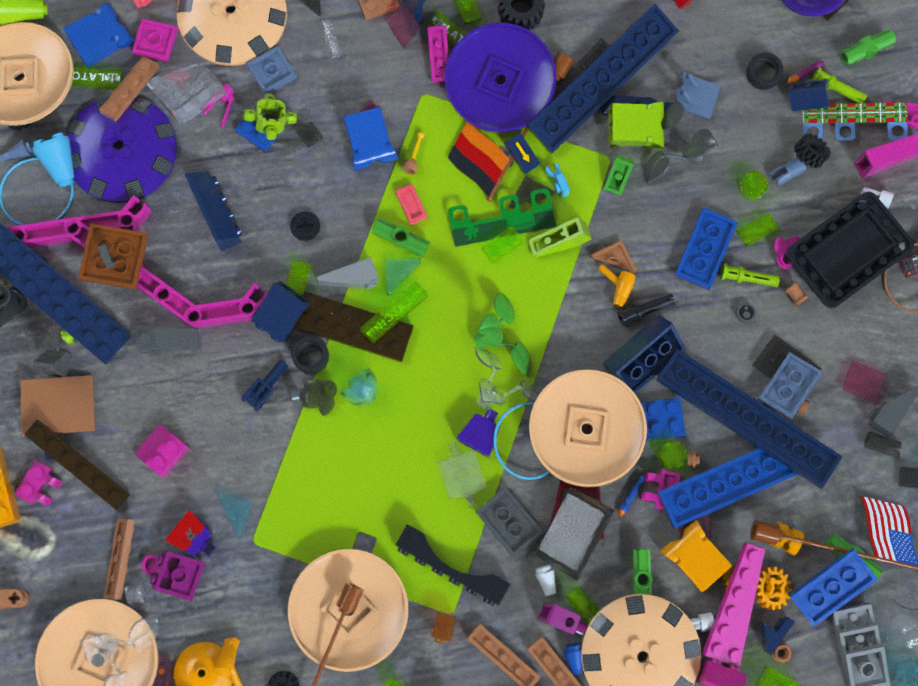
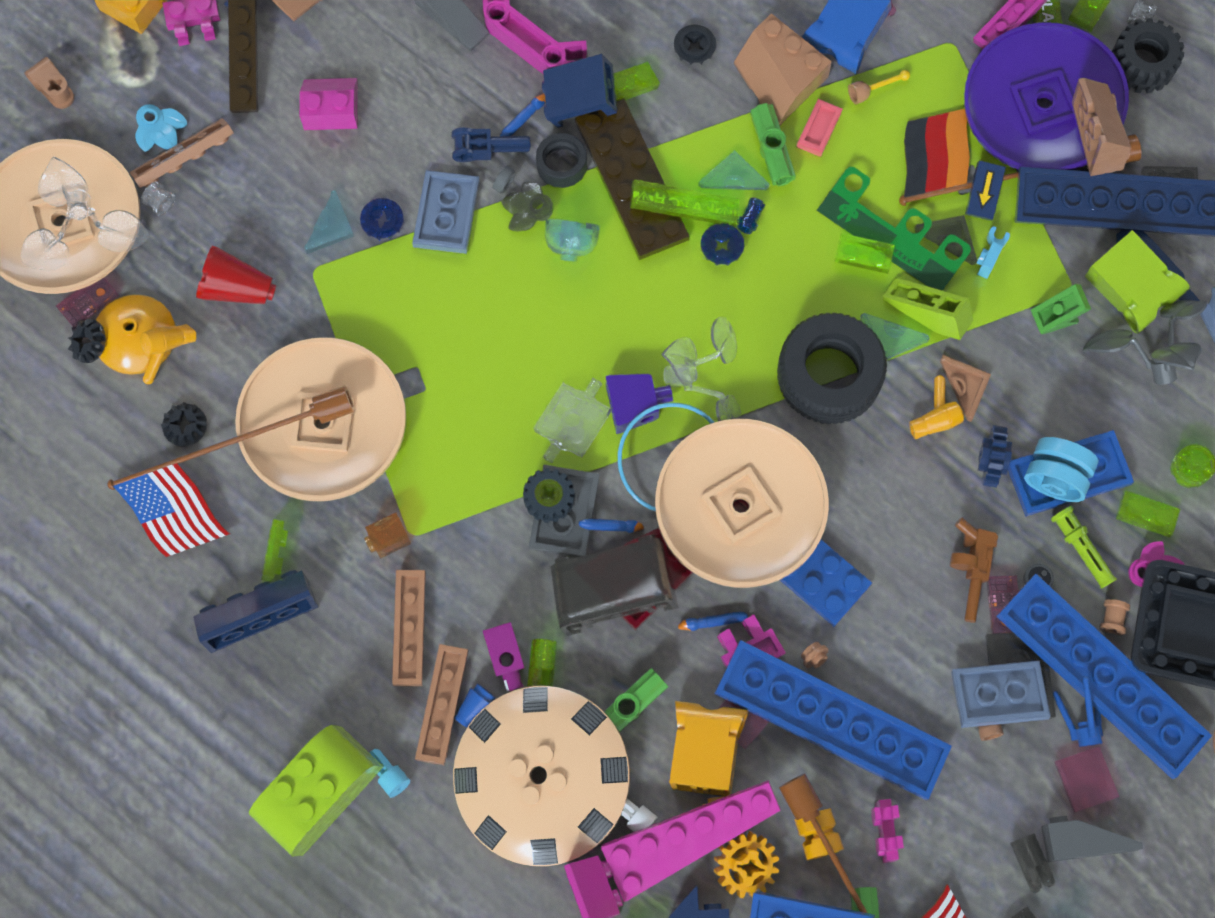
camera: 55 degrees right, 5 degrees down
(93, 557) = (160, 130): none -> medium azure plate
(149, 564) = (203, 191): dark pink tile -> none
(176, 575) = (212, 220): magenta plate -> none
(192, 535) = (266, 201): torso -> none
(224, 592) = (233, 280): none -> red cone
(258, 470) = (374, 210): none -> clear blue gear
(265, 353) = (536, 103): none -> blue piece
(283, 441) = (446, 212): none -> sand blue tile
(357, 276) = (687, 133): light grey slope -> none
(360, 194) = (781, 67): none -> nougat wedge
(426, 305) = (722, 233): none -> clear blue gear
(430, 284) = (748, 221): none -> pin
(488, 586) = (473, 544): black arch -> none
(492, 335) = (753, 300): bright green plant -> none
(492, 528) = (553, 504): none -> black wheel
(538, 503) = (611, 525): none -> blue piece
(546, 68) = (1100, 127): none -> nougat wedge
(546, 578) = (535, 603): white cone -> none
(559, 272) = (894, 337): none -> clear light blue tile
(560, 293) = (836, 333): none -> black tyre
(638, 311) = (926, 457): black pin -> none
(645, 353) = (885, 505): dark blue slope -> none
(669, 278) = (994, 456): none -> dark blue gear
(672, 455) = (798, 627): clear neon green brick -> none
(707, 253) = (1061, 469): none -> medium azure wheel
(713, 337) = (976, 563): none -> dark orange piece
(744, 342) = (1000, 592): none -> clear pink tile
(749, 419) = (918, 679): dark blue plate -> none
(806, 498) = (888, 843): none -> dark pink plate
(821, 327) = (1116, 687): none -> blue plate
(842, 358) = (1088, 732): none -> blue plant

